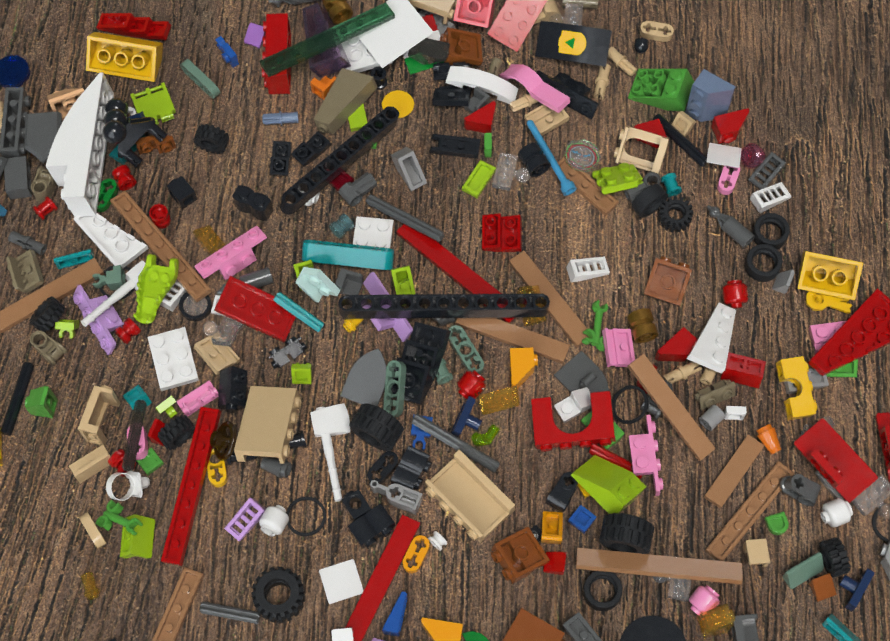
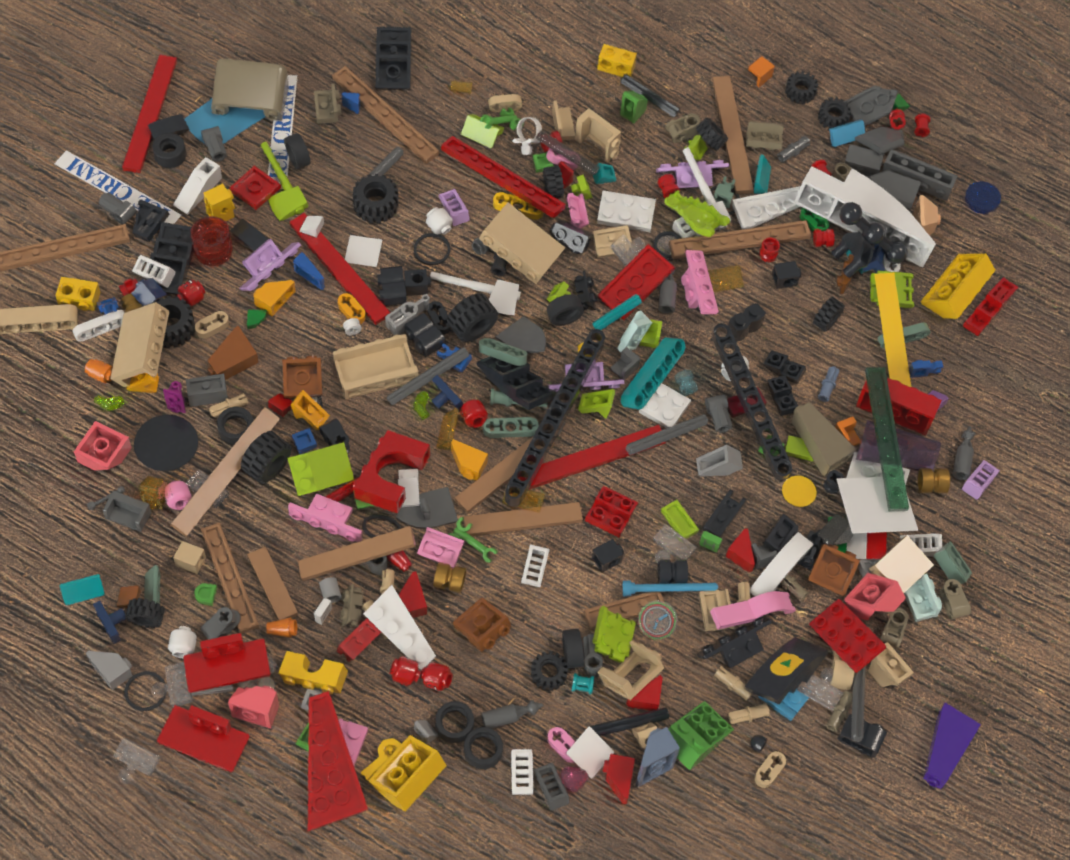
camera: 110 degrees right, 5 degrees down
(206, 82) = (892, 328): none -> yellow sticker
(220, 440) = (525, 204): dark brown piece -> none
(322, 354) = (565, 310): none -> black tyre
(547, 215) = (607, 555): none -> black brick
(585, 609) = (238, 401): none -> tan axle
(746, 320) = (404, 671): none -> red head
(854, 417) = (255, 705): none -> coral slope

